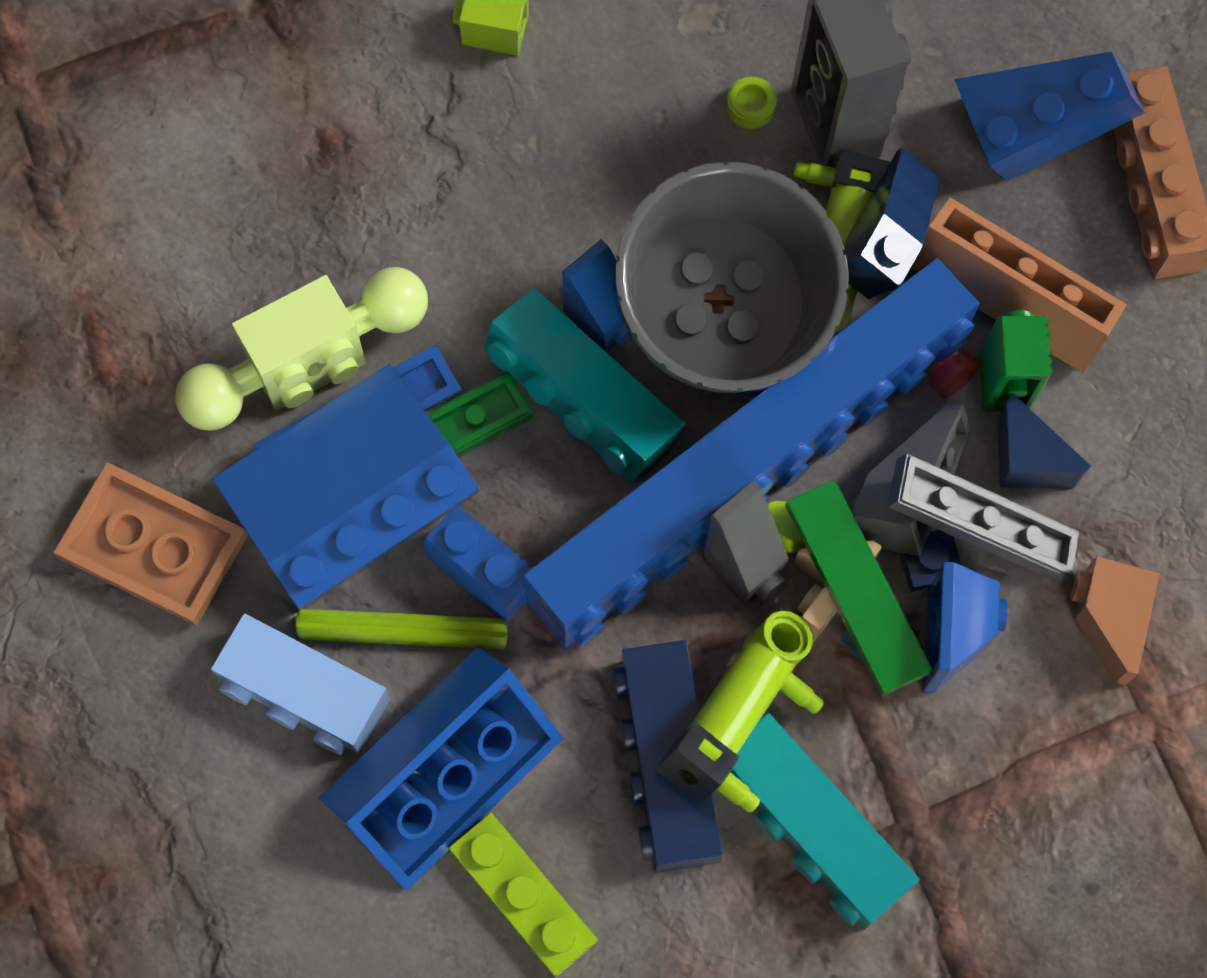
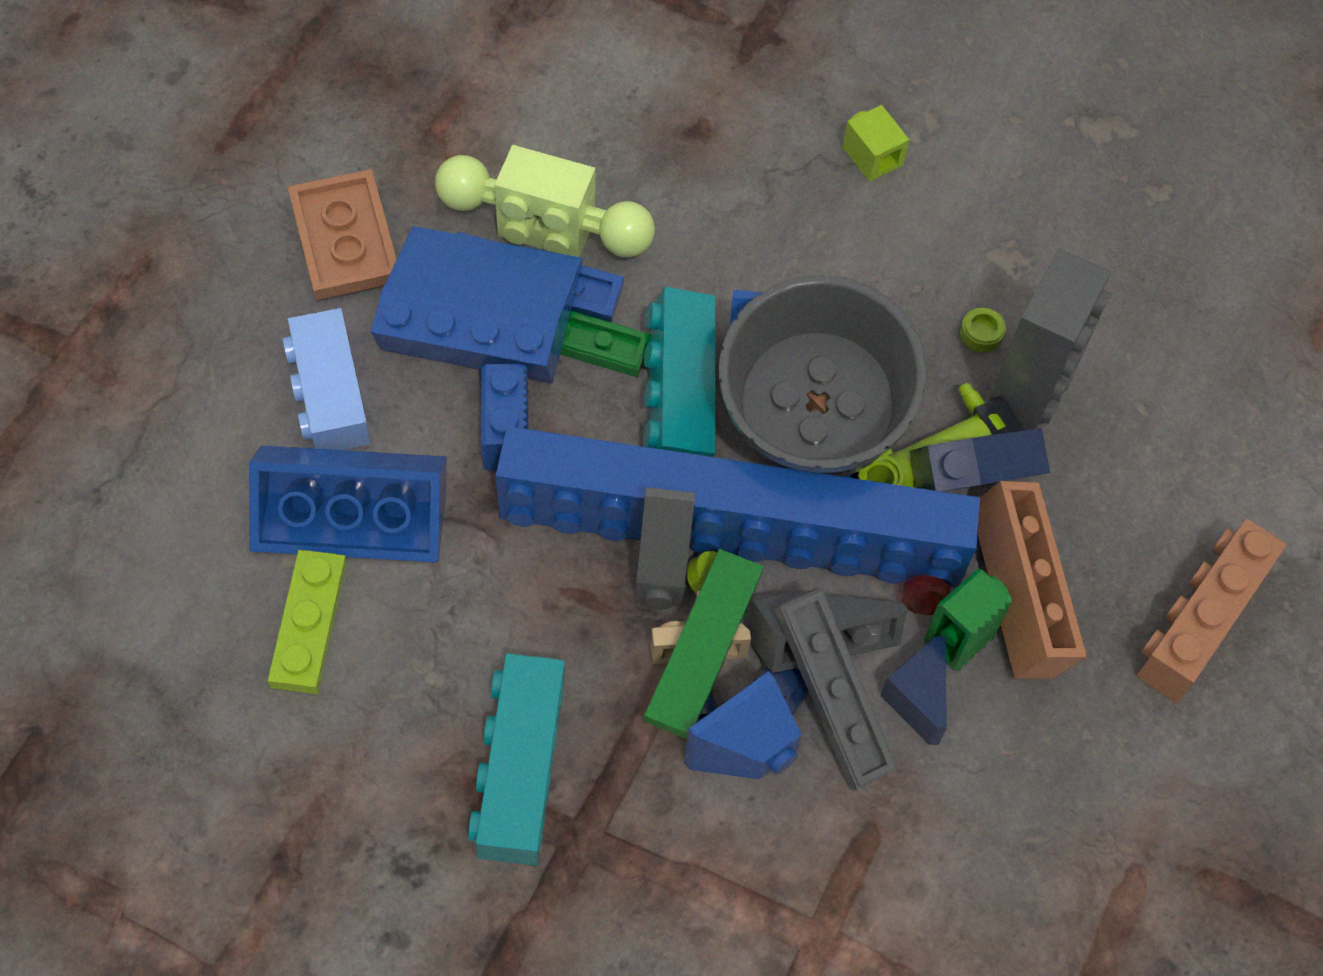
camera: 45 degrees right, 10 degrees down
(402, 628) = (422, 412): lime axle -> none
(661, 708) = (480, 630): dark blue brick -> none
(709, 746) = (492, 631): lime piece -> none
(1047, 109) = (1169, 494): blue wedge -> none
(1115, 613) = (863, 837): nougat slope -> none

